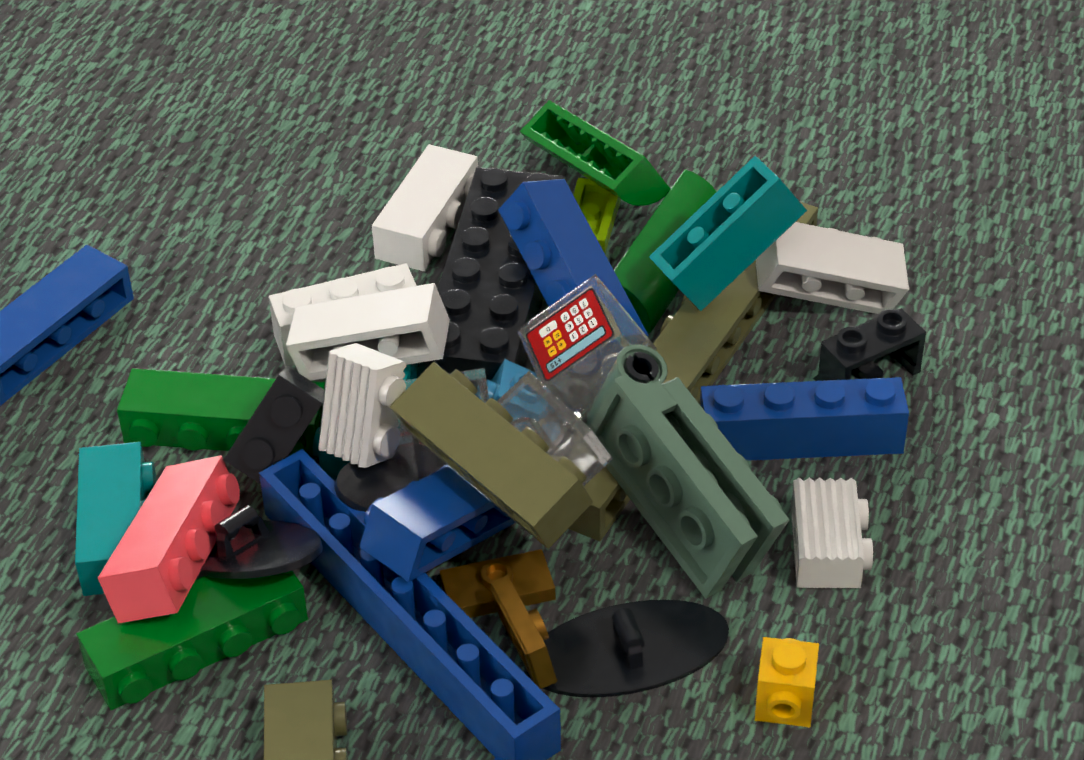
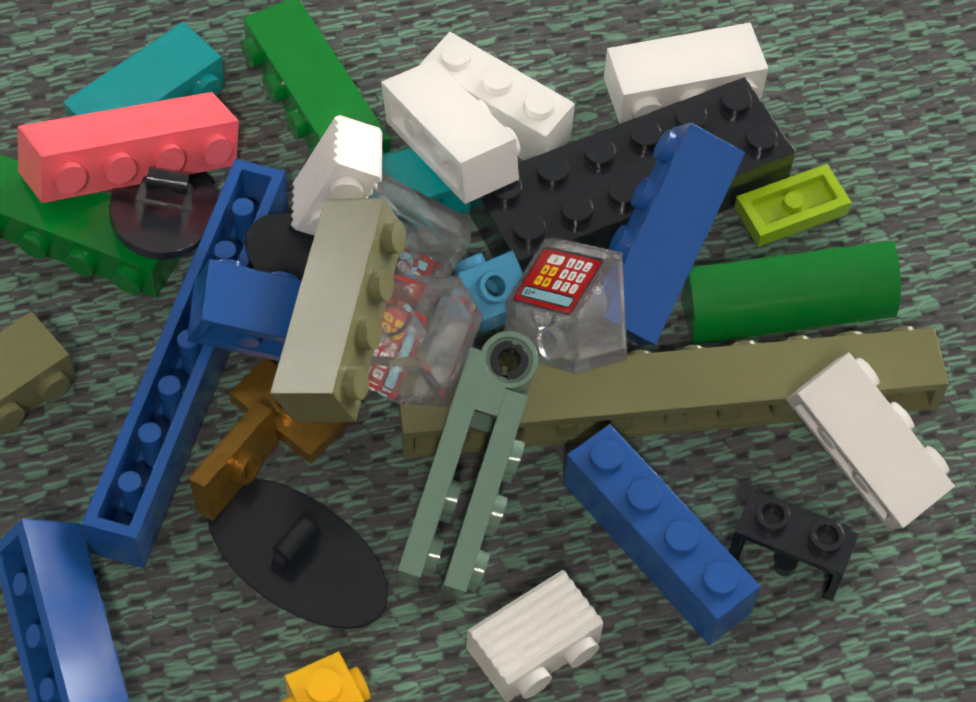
camera: 50 degrees right, 15 degrees up
(276, 424) = (289, 133): black brick -> none
(595, 155) = (851, 160): green brick -> none
(728, 233) = (785, 327): teal brick -> none

